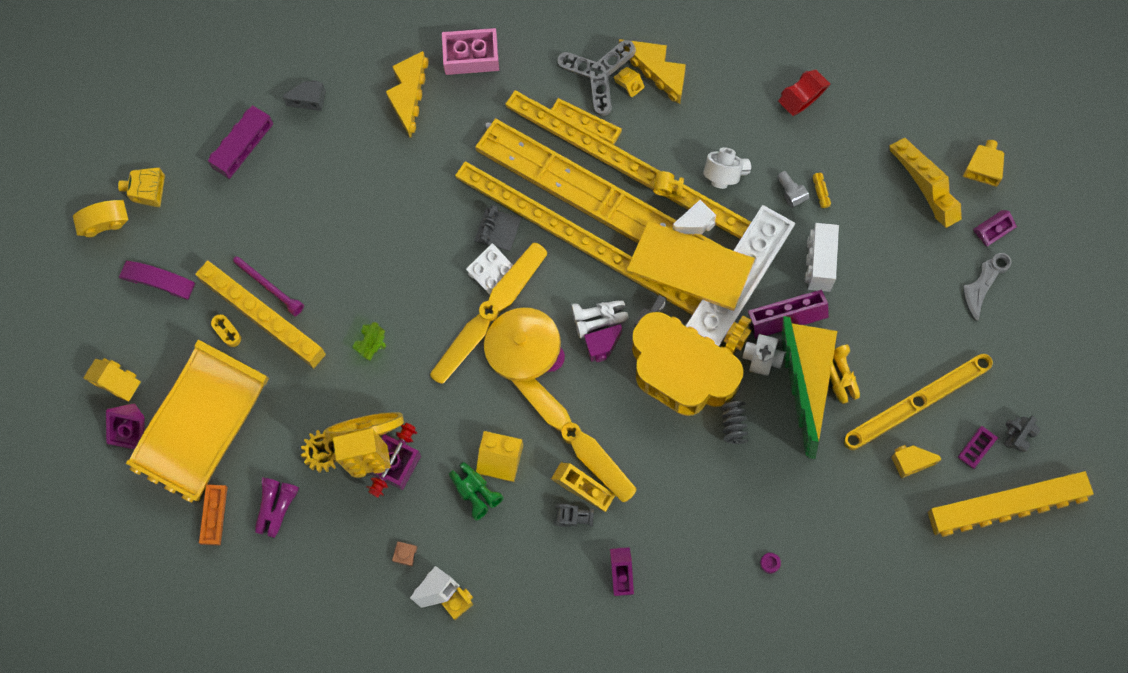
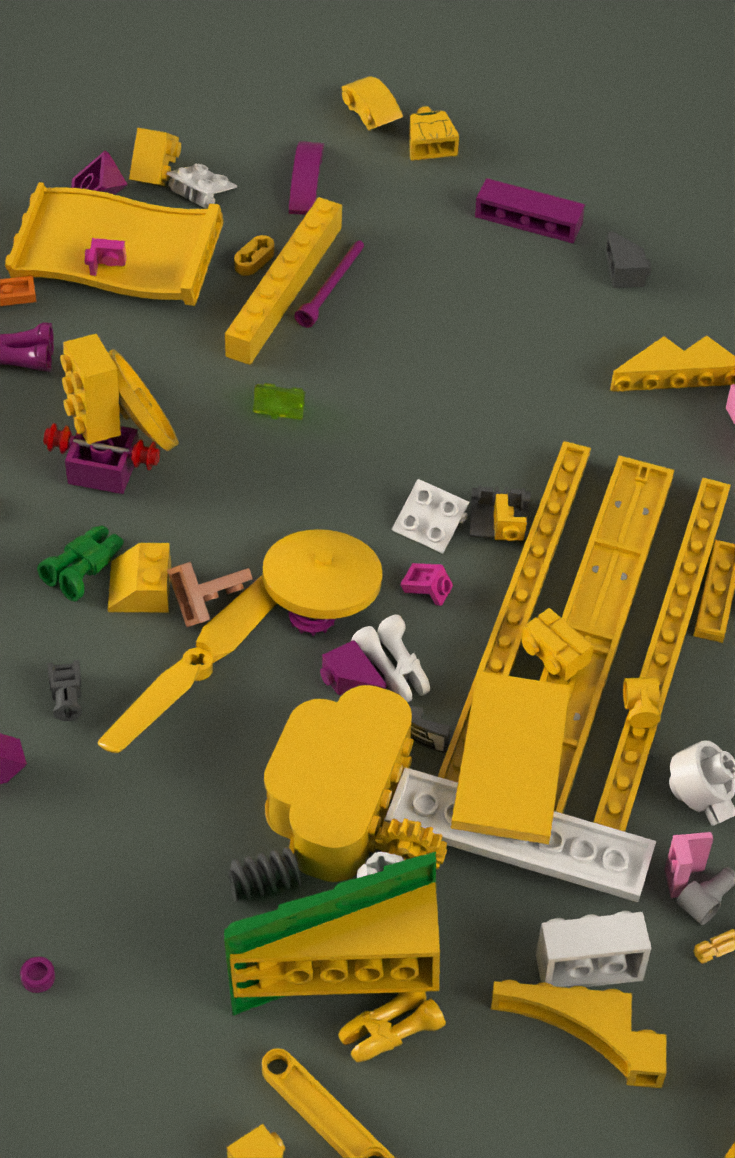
camera: 70 degrees right, 20 degrees down
(142, 352) = (198, 184): none -> white hinge
(215, 424) = (105, 252): none -> dark pink bracket
(500, 298) = (386, 536): yellow piece -> none
(508, 227) = (505, 524): none -> yellow bracket
(522, 421) = (192, 596): none -> nougat bracket
(542, 284) = (428, 579): none -> dark pink bracket
(583, 486) = (114, 687): yellow slope -> none
(618, 220) = (556, 644): none -> yellow brick
(696, 220) = (593, 747): white slope -> none
(777, 196) = (686, 855): none -> bright pink panel
(801, 310) = (477, 921): magenta brick -> none
(860, 264) = (596, 1018): none -> yellow arch

